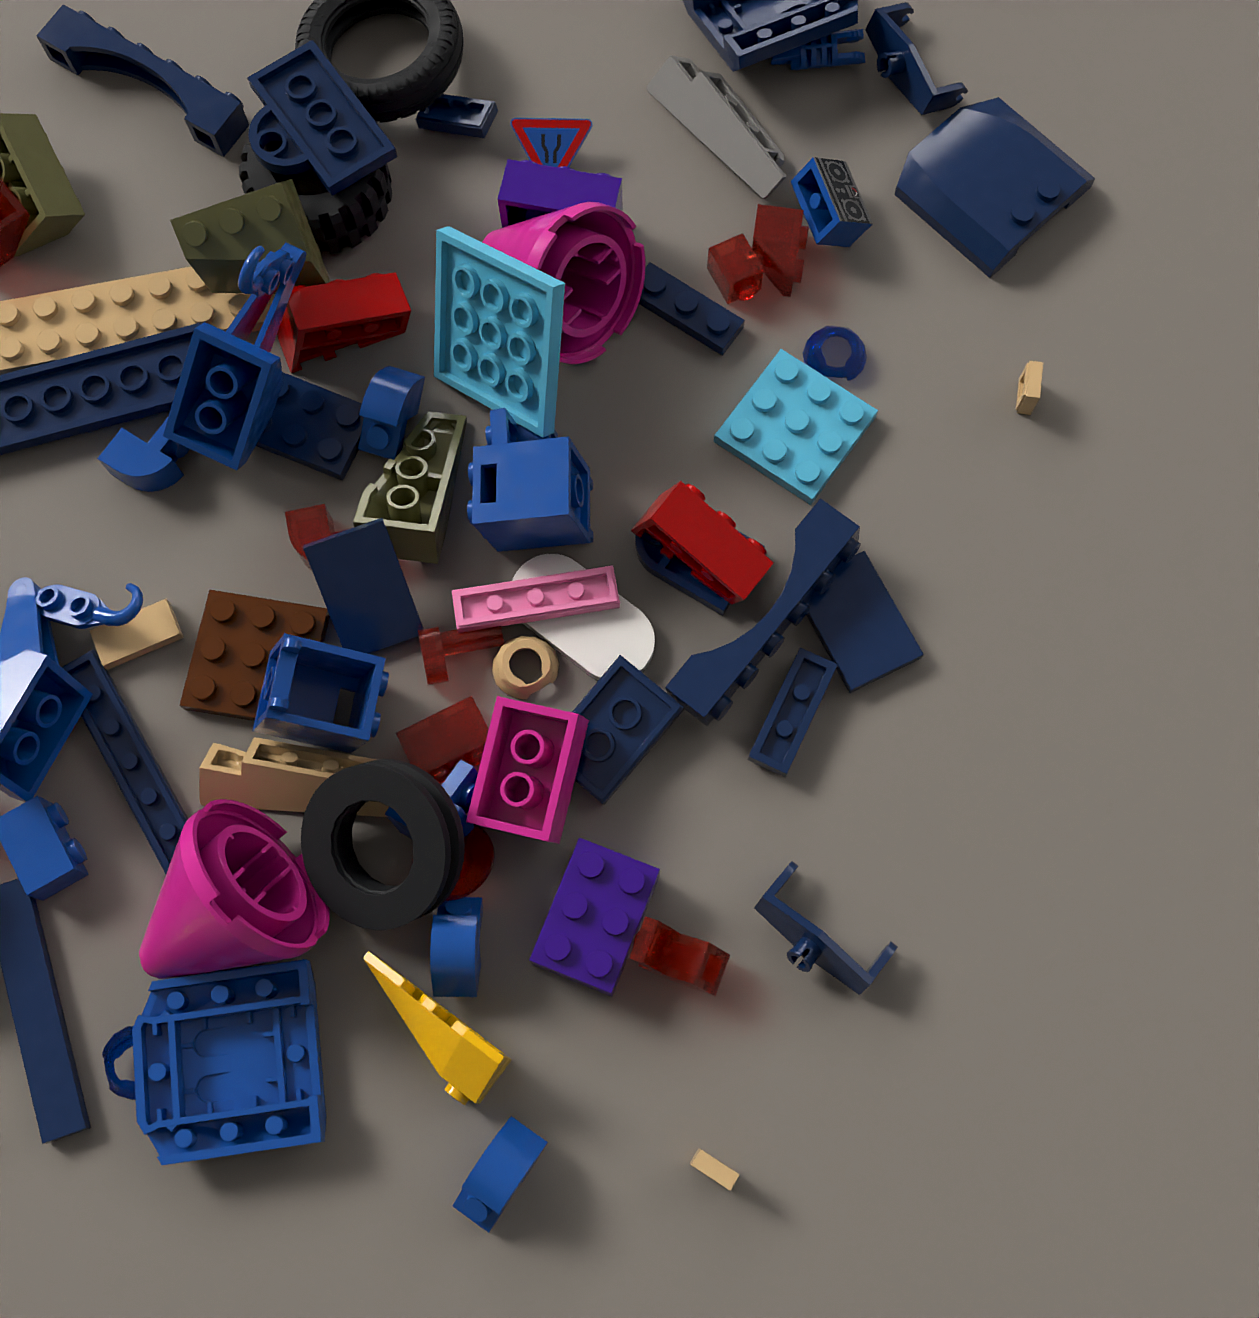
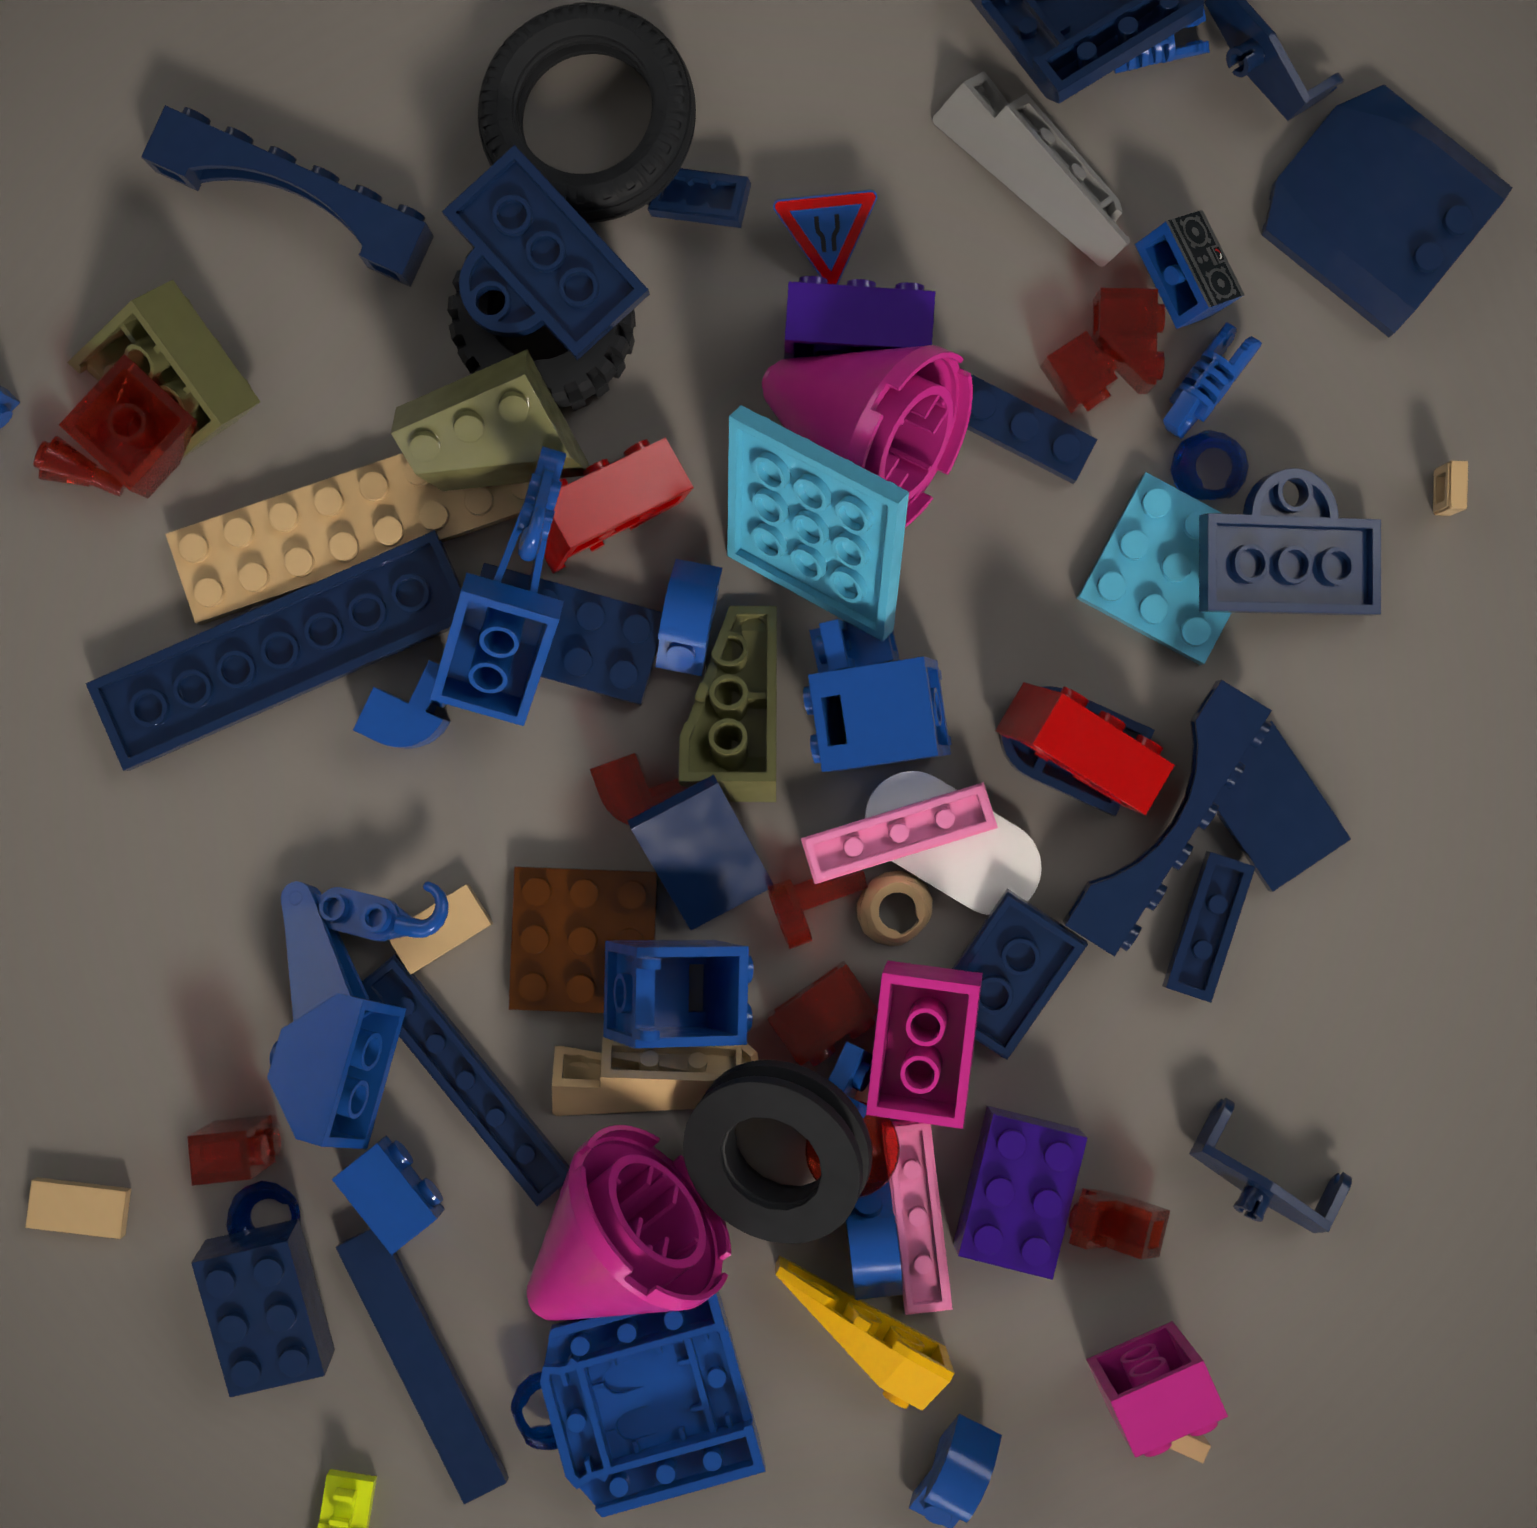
camera: 10 degrees left, 15 degrees up
(503, 937) = (919, 1222): none -> bright pink tile
(693, 1103) = (1157, 1390): none -> dark pink brick
(839, 287) = (1208, 381): none -> blue hinge
(890, 418) = (1289, 555): none -> dark blue plate

